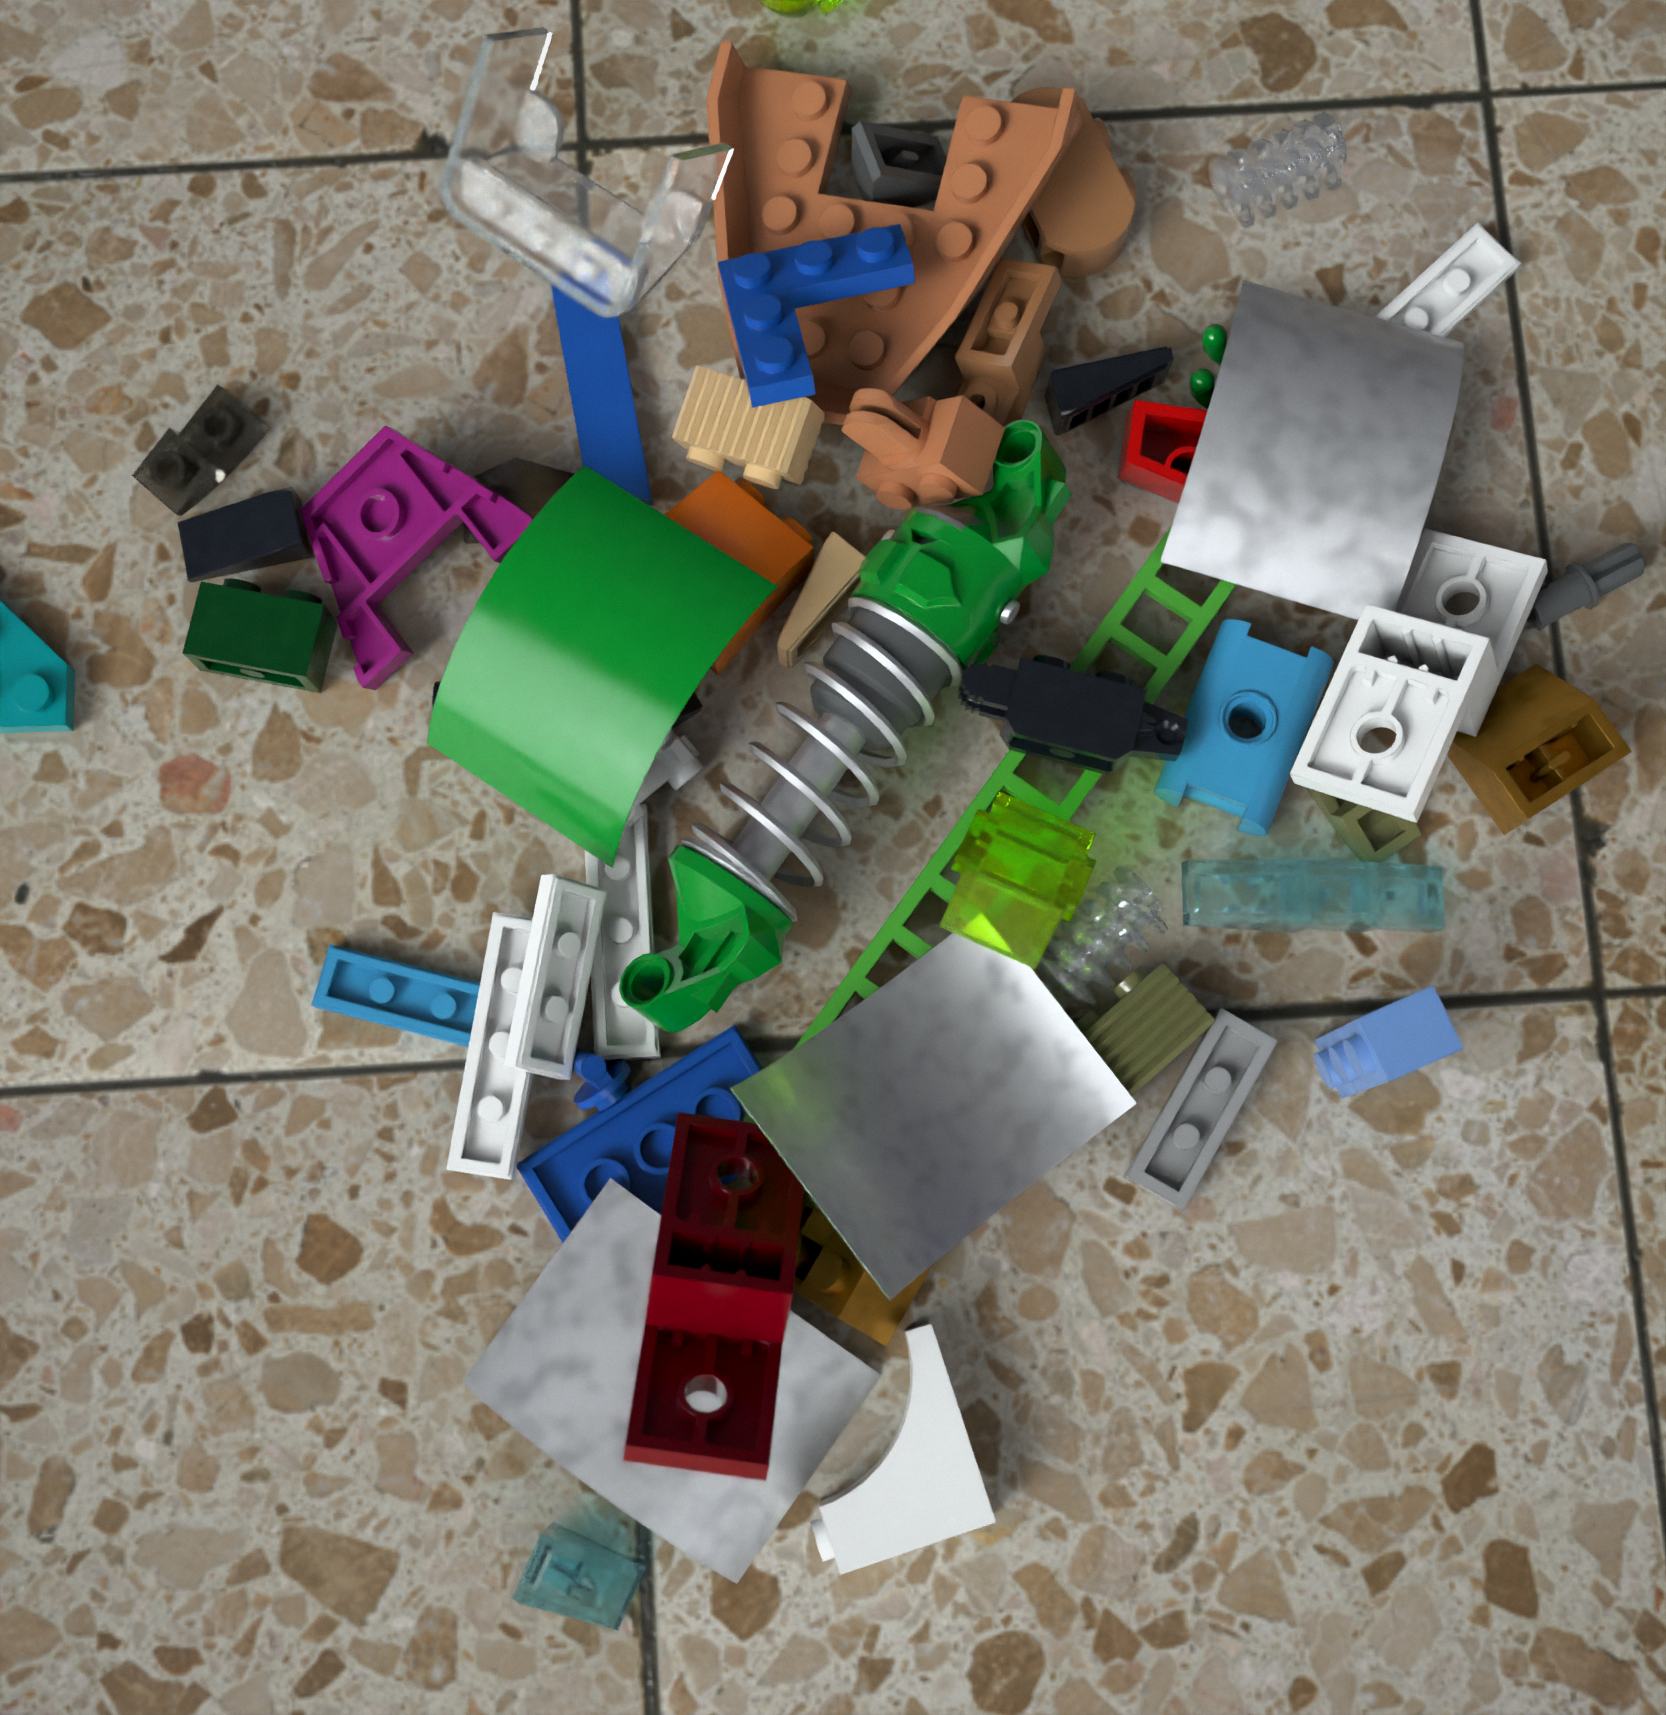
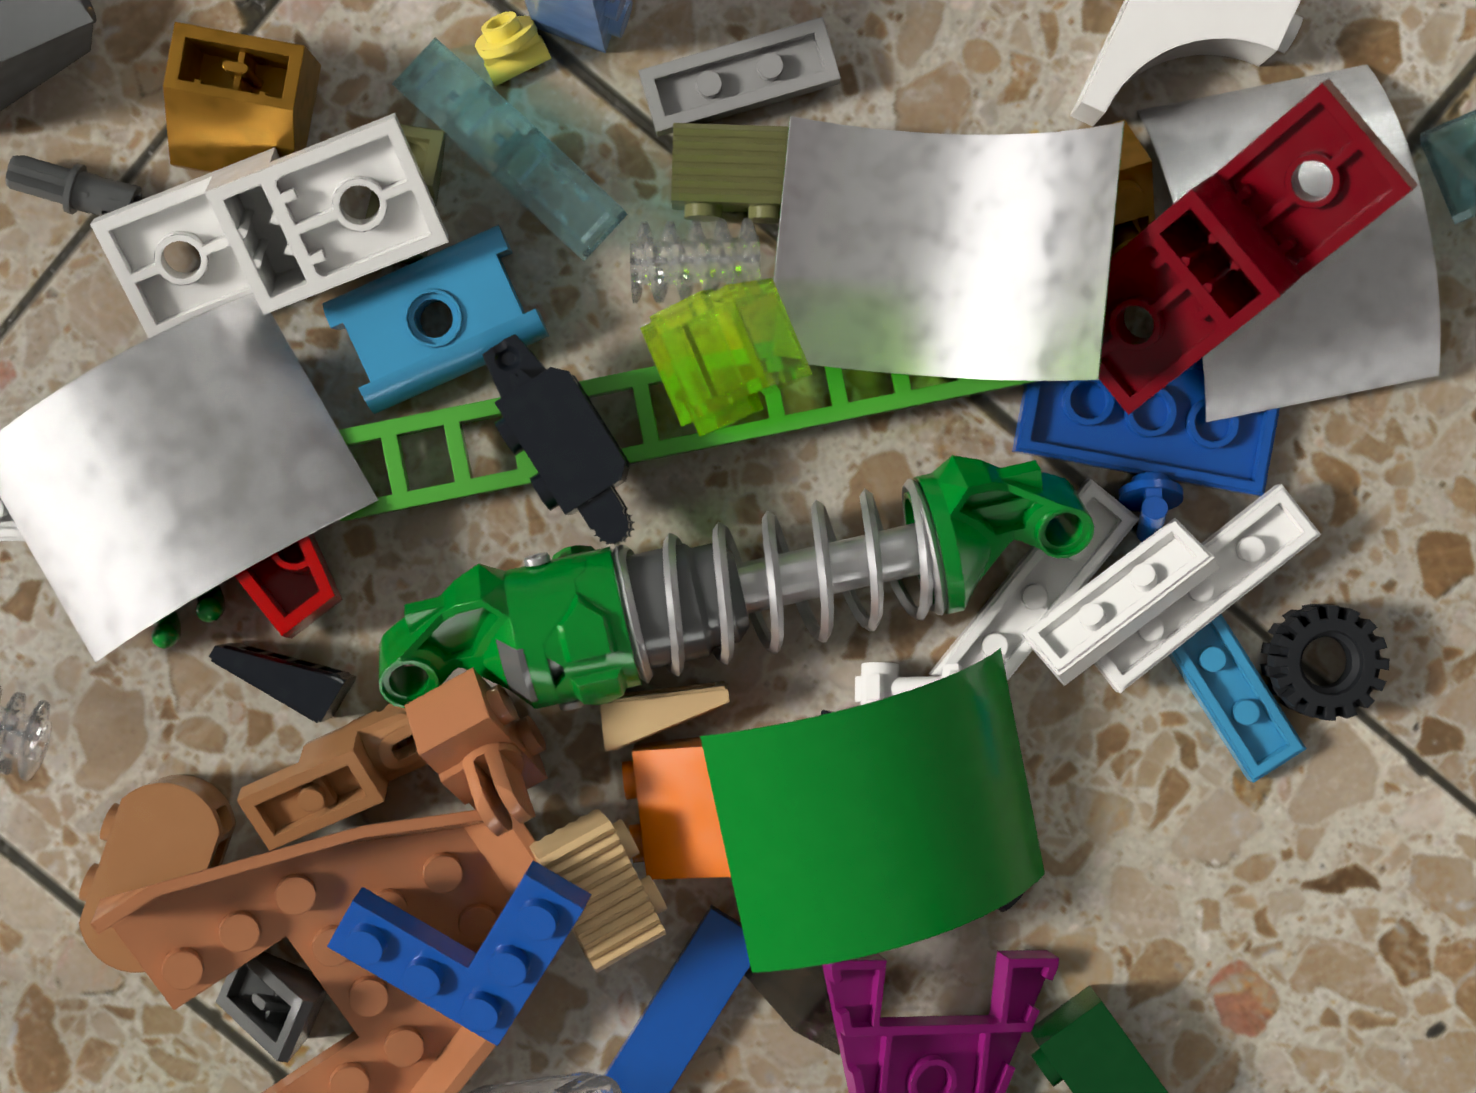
camera: 135 degrees left, 10 degrees up
(323, 1060) = (1361, 667): none -> black tyre
(1385, 973) = (510, 46): none -> light yellow plate

